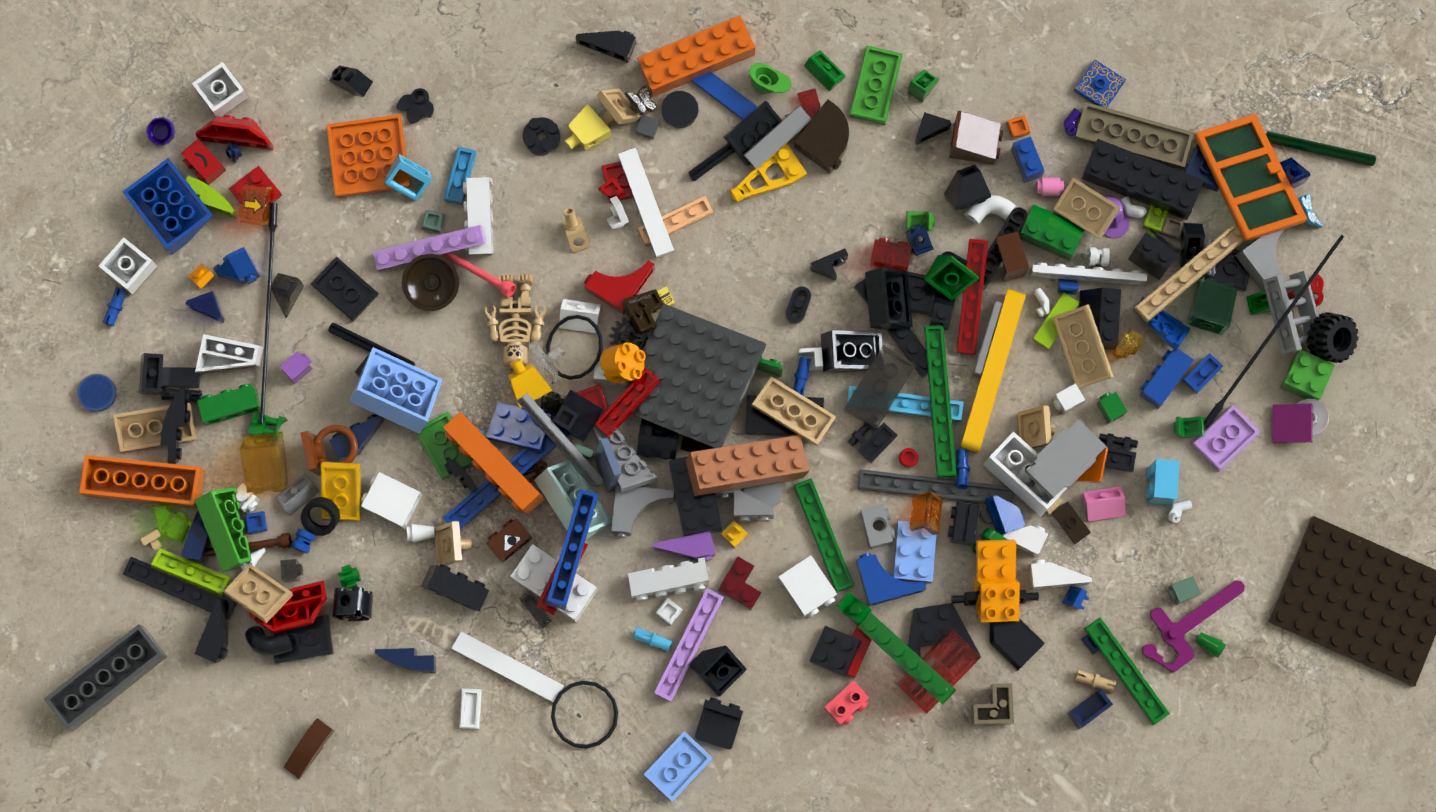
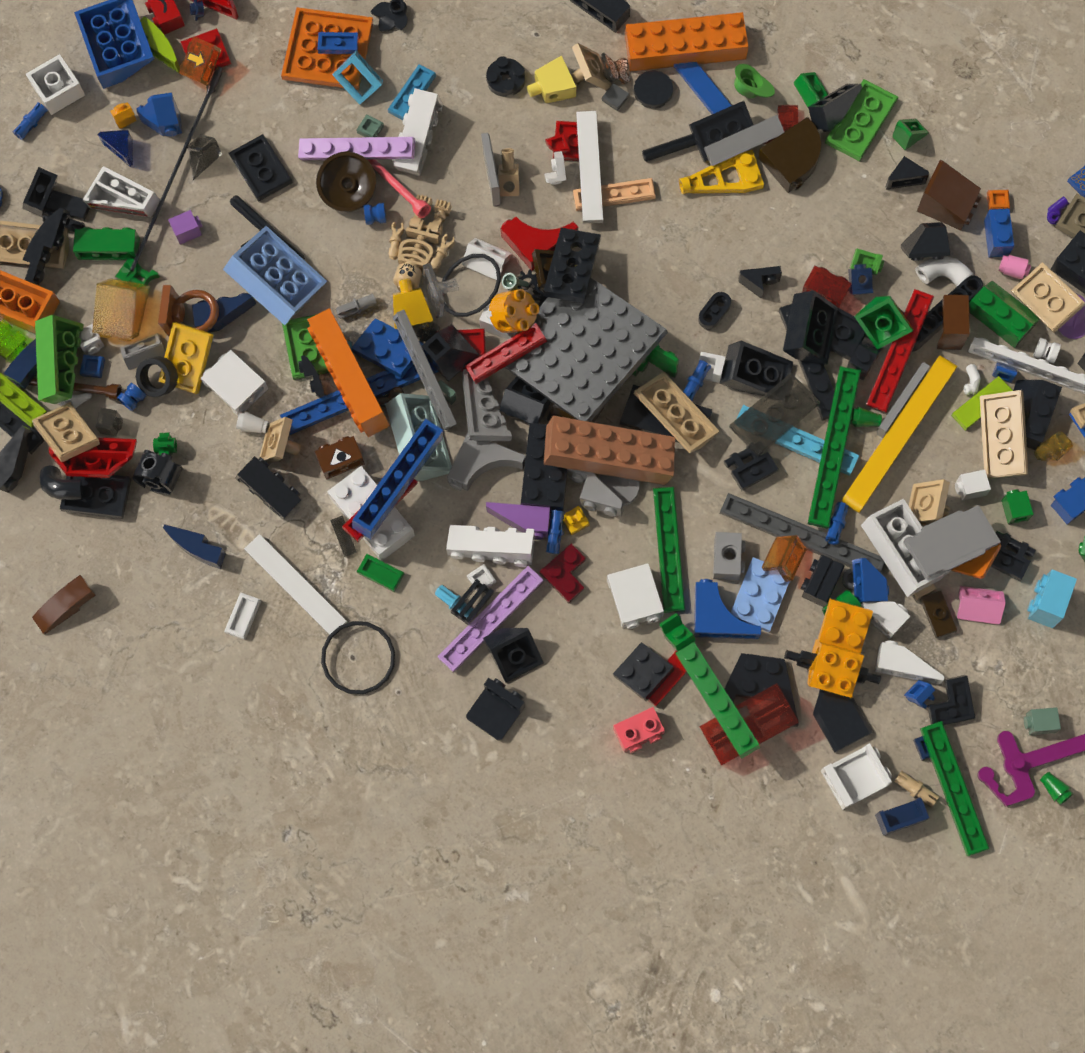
camera: 20 degrees right, 5 degrees down
(378, 150) = (337, 42): none -> blue plate
(465, 304) = (375, 213): none -> blue wheel
(477, 395) = (356, 306): none -> light grey axle
(558, 232) = (491, 169): none -> light grey tile
(578, 633) = (380, 572): none -> green tile
(607, 464) = (463, 405): sand blue tile -> none
(613, 337) = (512, 281): none -> sand green piece
(653, 313) = (580, 274): none -> black plate
(673, 620) = (482, 588): none -> black tile
(678, 766) = (438, 741): light blue plate -> none
(721, 550) = (555, 532): none -> blue pin
(848, 81) = (833, 107): none -> black slope
(908, 458) = (783, 496): red tile -> none
(959, 365) = (865, 418): none -> green cone
(999, 711) = (799, 788): dark tan brick -> none
(1042, 685) = (857, 776): none -> white panel
(1110, 597) = (959, 703): none -> black tile
(1177, 509) = (1058, 634): white arm -> none

